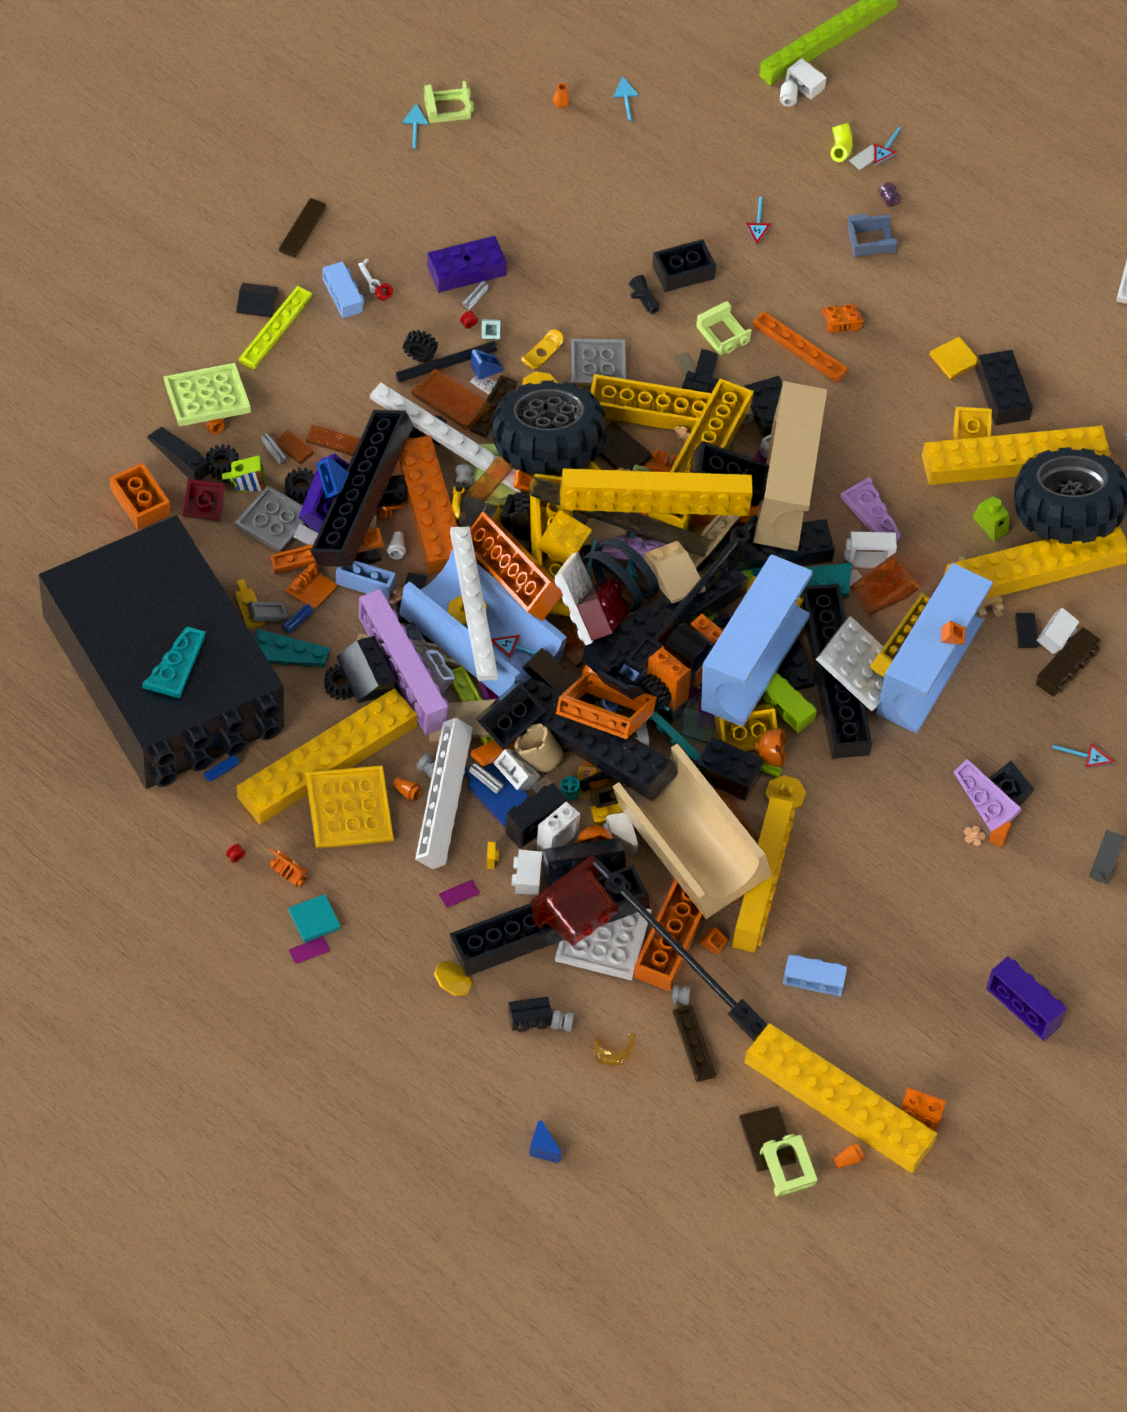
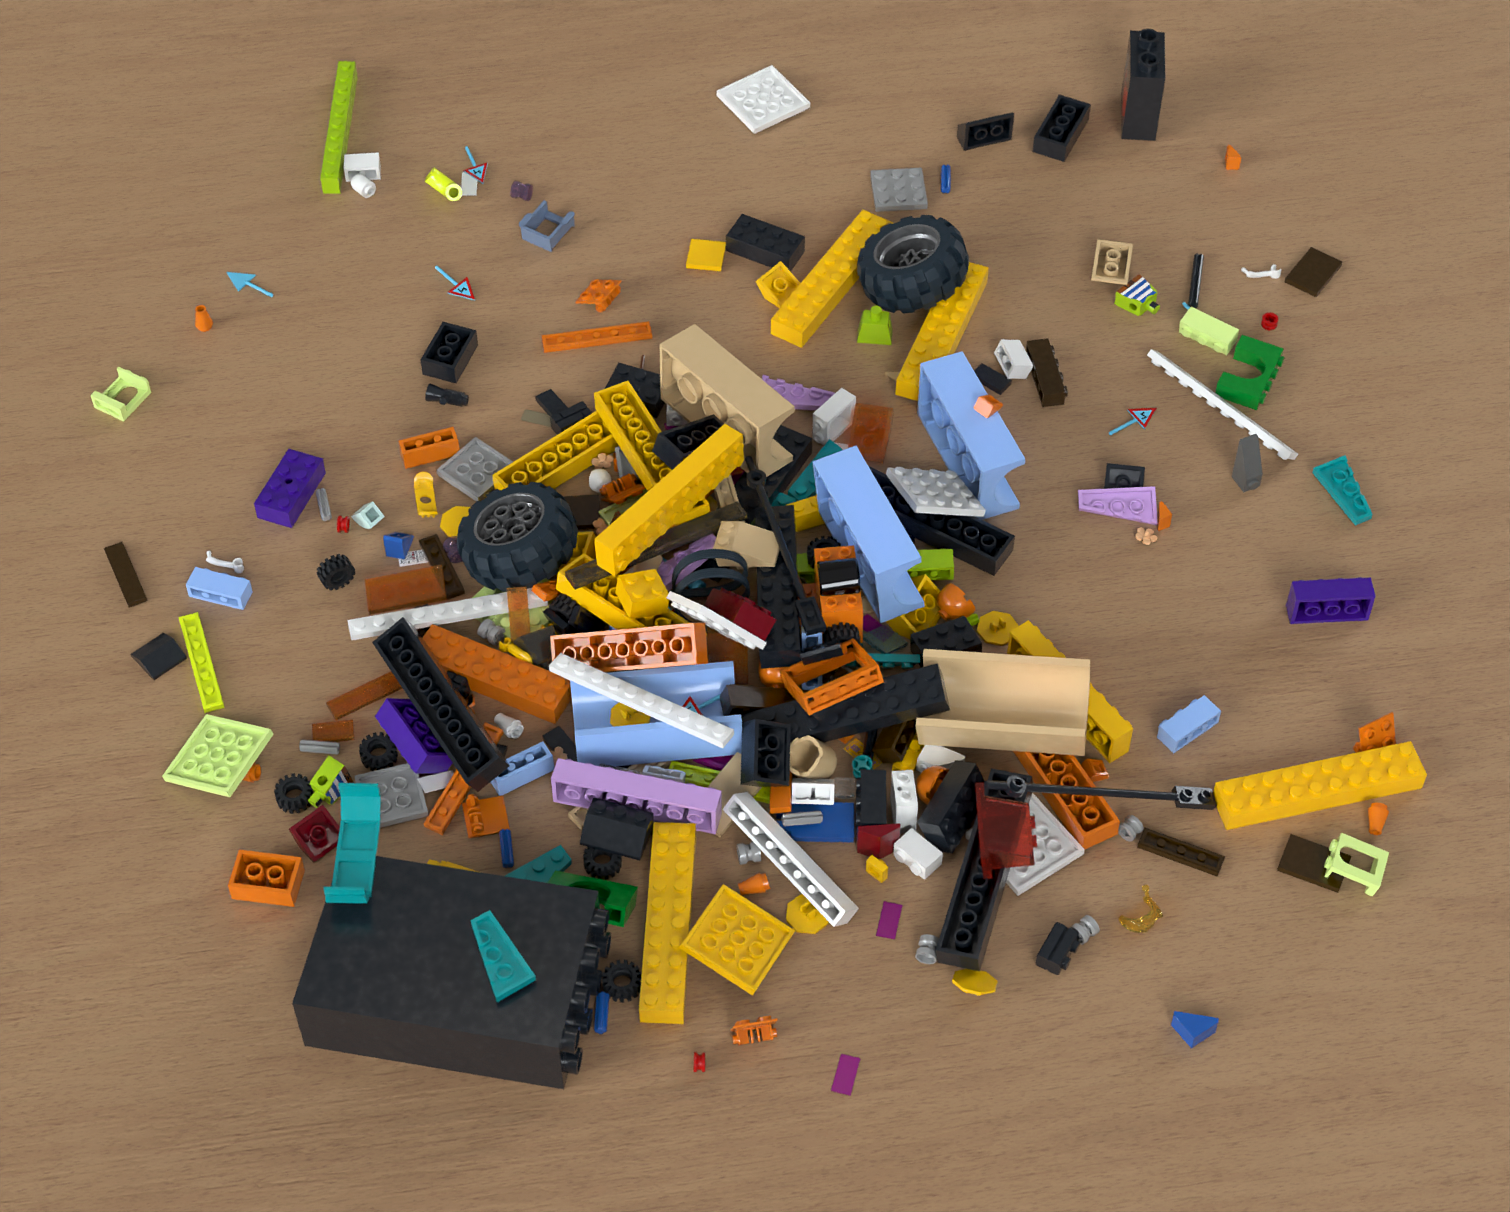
camera: 45 degrees left, 5 degrees down
(181, 454) = (255, 818): black slope -> none
(183, 521) = (356, 844): none -> teal windscreen
(252, 753) = (622, 969): none -> black tyre
(268, 611) = (482, 861): light grey tile -> none
(314, 918) = (819, 1047): teal tile -> none
(315, 712) = (616, 897): none -> green arch
(332, 476) = (411, 715): blue slope -> none
(388, 293) = (252, 561): red bush -> none
(409, 837) = (804, 916): none -> yellow piece
(415, 117) = (108, 426): medium azure piece -> none
(443, 362) = (364, 569): black axle -> none
(446, 929) = (927, 951): none -> light grey wheel
(511, 837) = (877, 839): none -> dark red slope
(584, 318) = (429, 447): none -> orange brick
(664, 443) = (598, 478): none -> white piece
(718, 314) = (517, 362): yellowish green panel -> none
(898, 637) = (936, 448): yellow brick -> none

